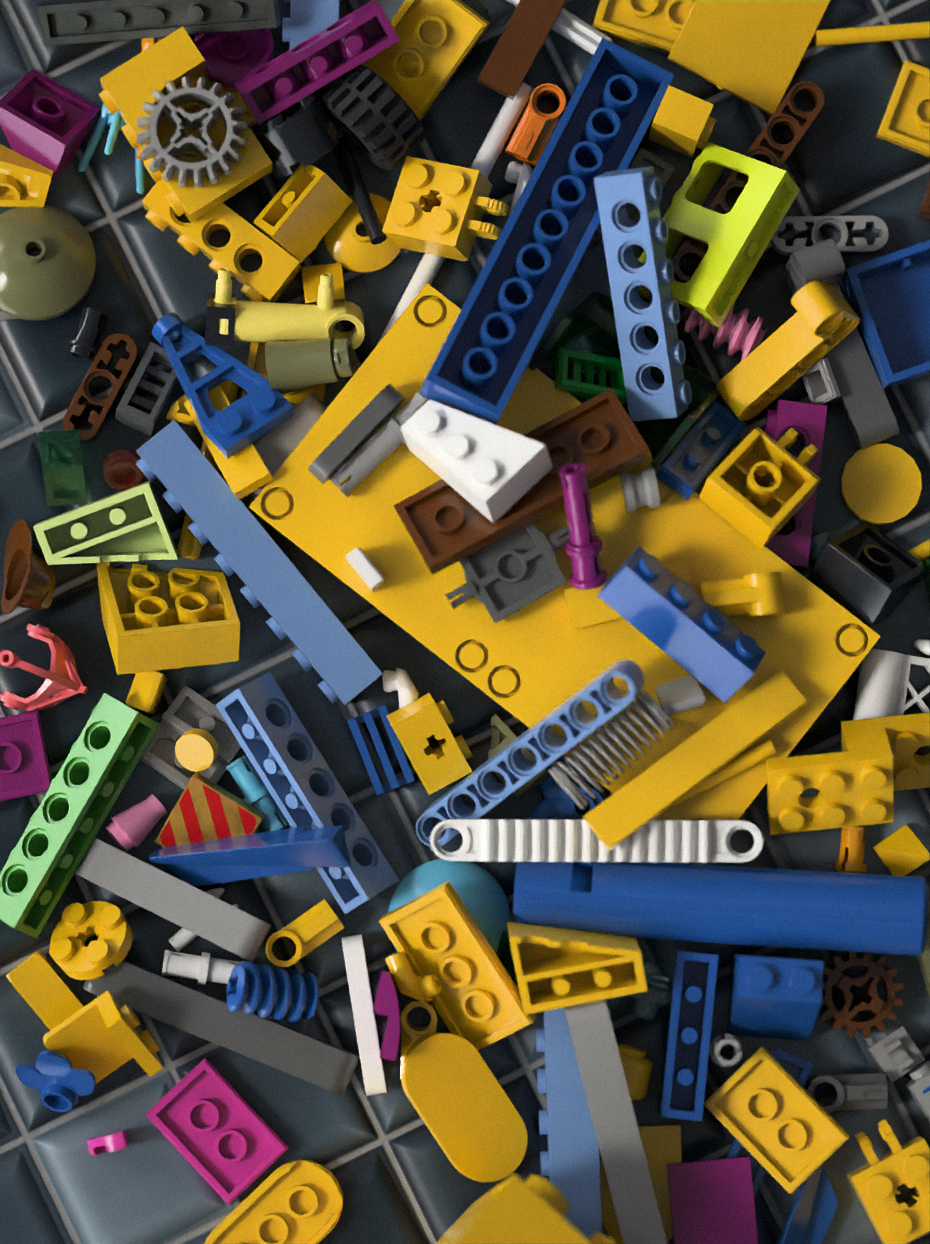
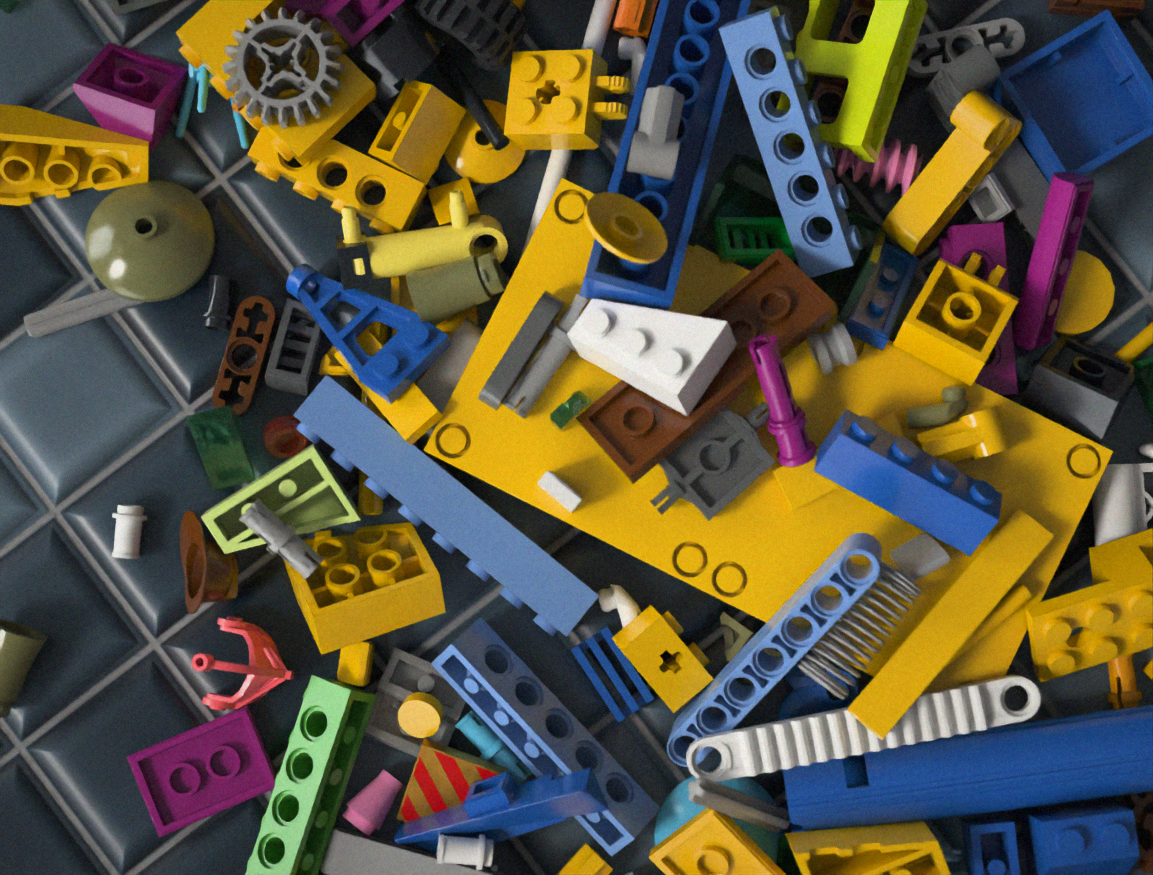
camera: 10 degrees left, 0 degrees up
(102, 561) = (281, 538): none -> light grey pin
(212, 879) = (465, 850): none -> white pin
(245, 832) = (490, 794): none -> blue tile
(387, 498) = (568, 411): none -> clear green tile
(469, 887) = (738, 804): none -> light grey axle
(470, 341) = (625, 227): none -> yellow dish
(516, 268) = (655, 142): none -> light grey piece
(726, 568) = (939, 414): none -> olive arm
(863, 450) = (1052, 259): none -> magenta brick

